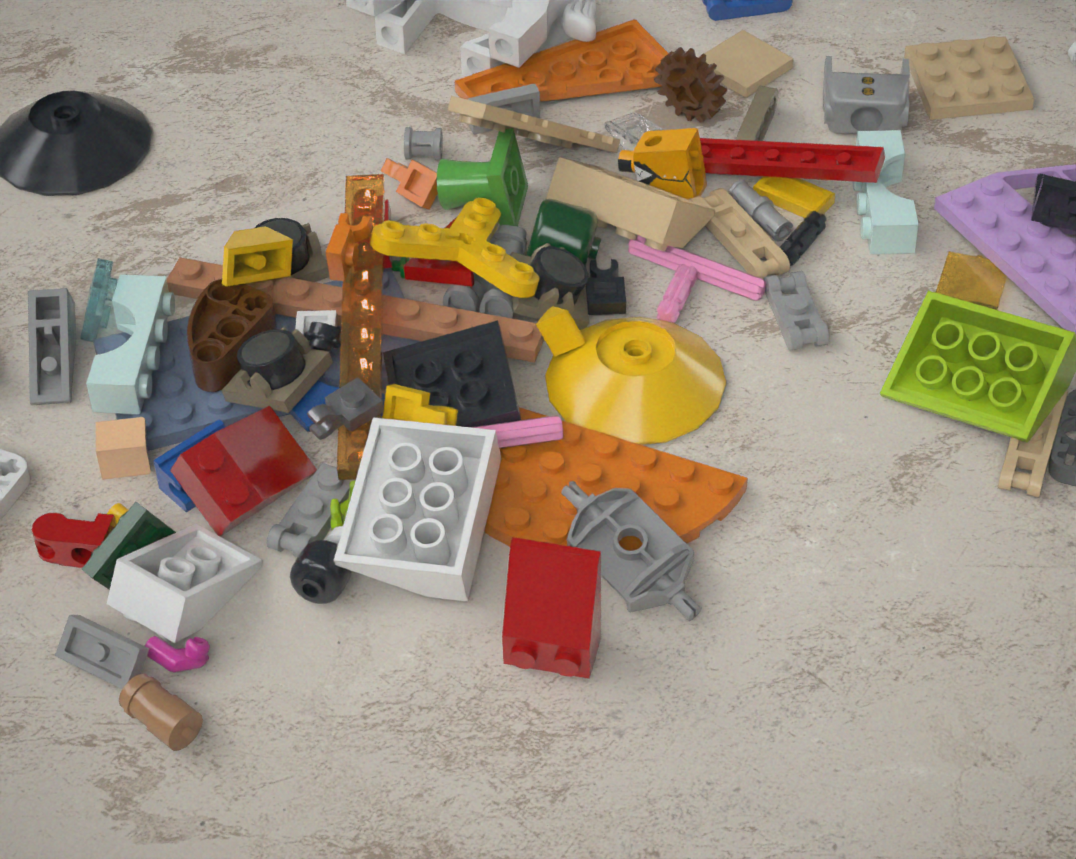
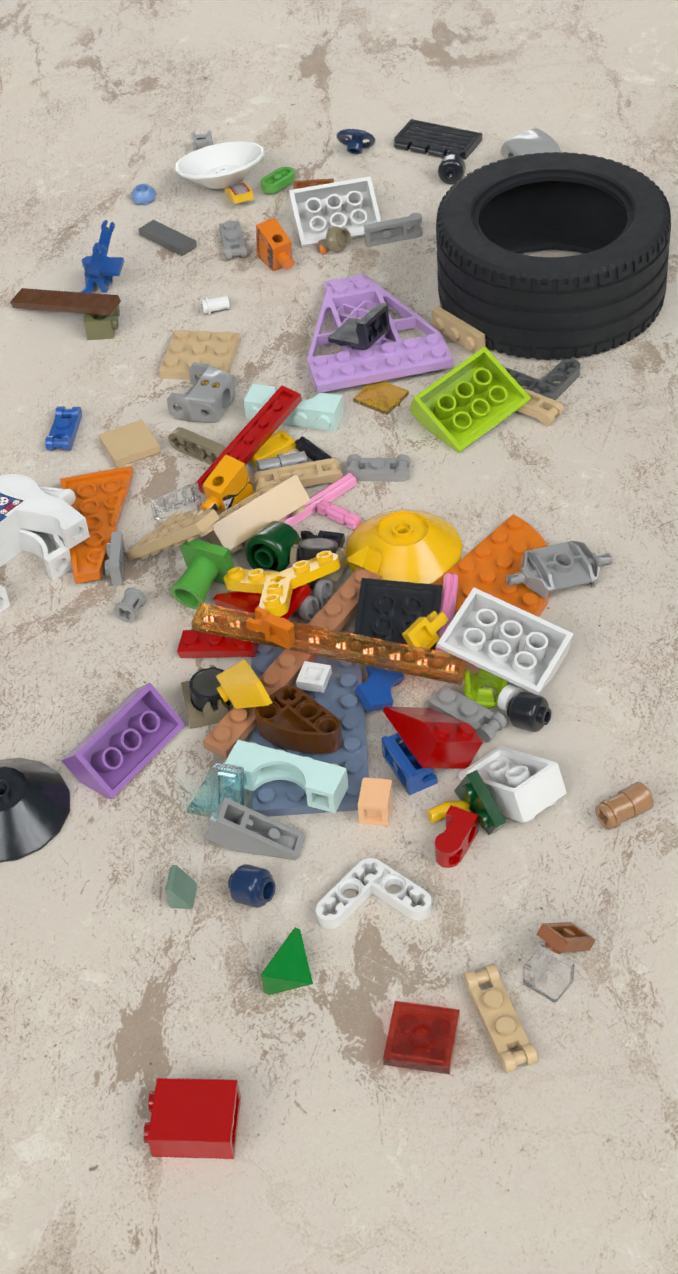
camera: 70 degrees left, 0 degrees up
(100, 651) = (564, 831): light grey plate -> none
(180, 199) = (124, 742): none -> medium lavender slope
(182, 659) = (575, 795): dark pink arm -> none
(276, 370) = (353, 700): piece -> none
(323, 336) = (337, 665): black plate -> none
(347, 406) = (418, 658): flat silver plate -> none
(416, 181) = (171, 613): orange plate -> none
(552, 608) = (614, 600): red slope -> none
(690, 84) = (158, 460): reddish brown gear -> none

